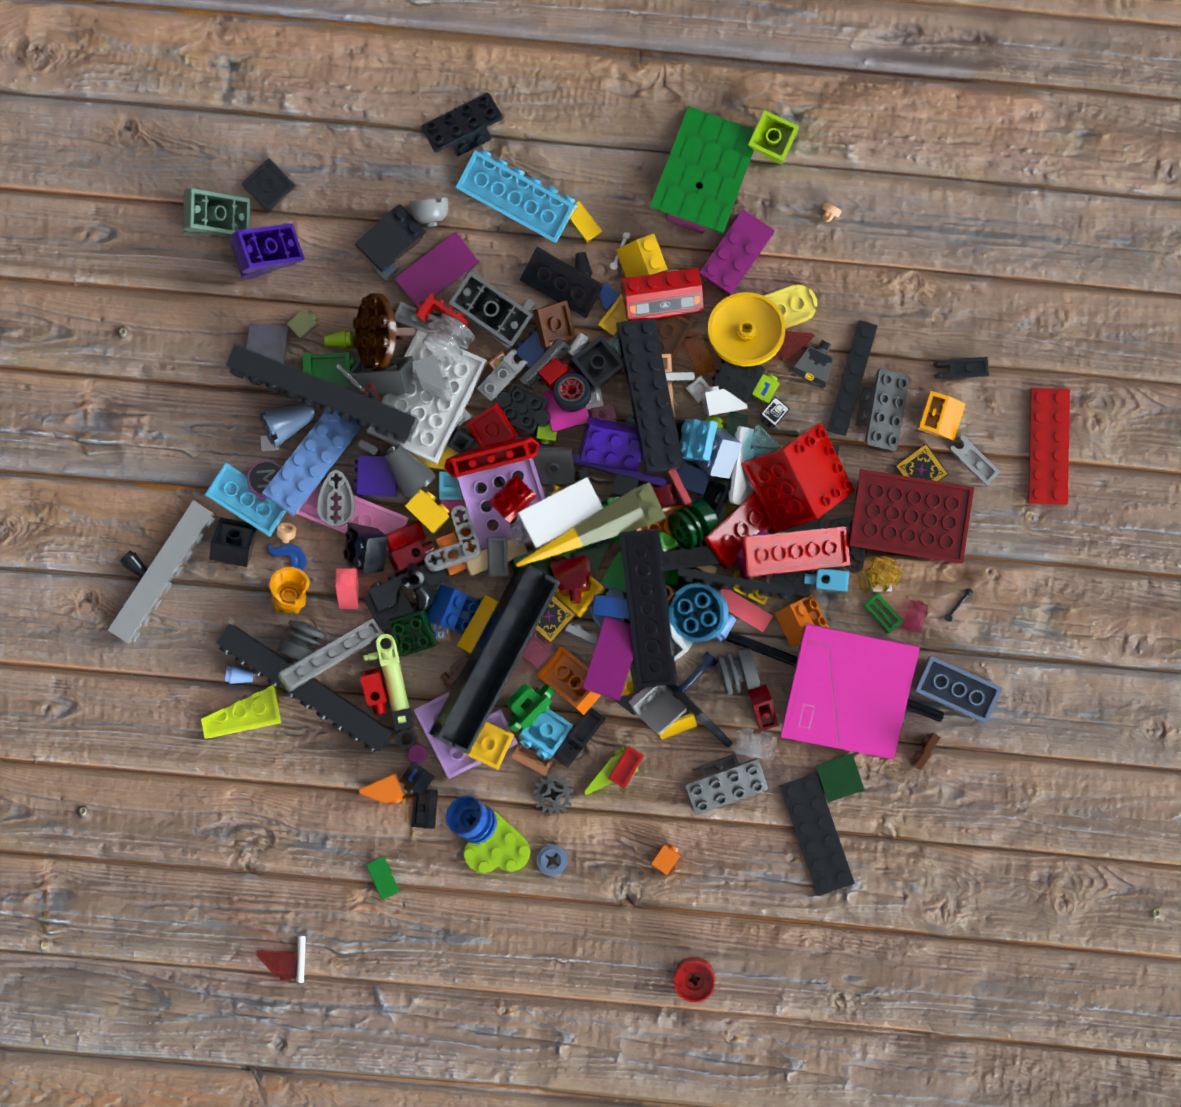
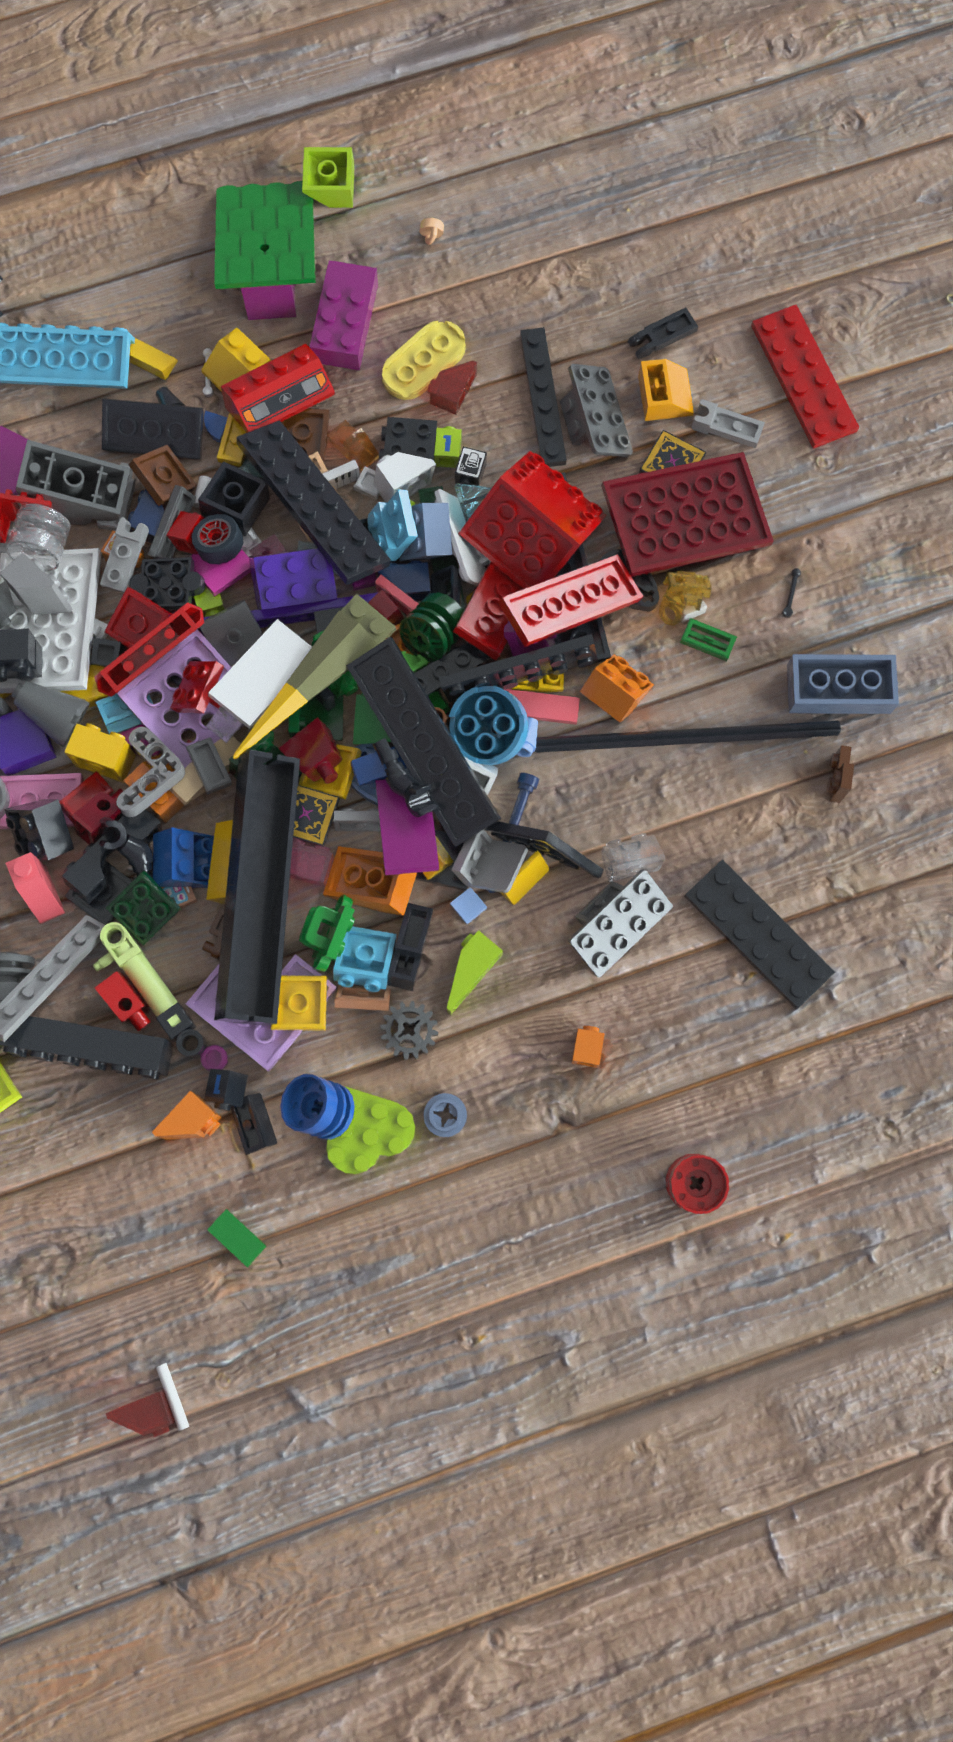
camera: 25 degrees left, 10 degrees down
(622, 630) = (403, 782): none -> black piece
(626, 767) = (485, 952): red tile -> none
(630, 727) = (468, 905): none -> light blue tile
(738, 671) = (574, 773): dark grey wheel -> none
(746, 329) = (393, 385): yellow dish -> none
(763, 707) = (620, 808): dark red slope -> none
(815, 365) = (493, 398): torso -> none
(837, 580) = (628, 623): medium azure torso -> none
(839, 777) = (753, 852): dark green tile -> none
(849, 691) = (715, 740): dark pink tile -> none
(915, 616) = (749, 625): clear pink bracket -> none

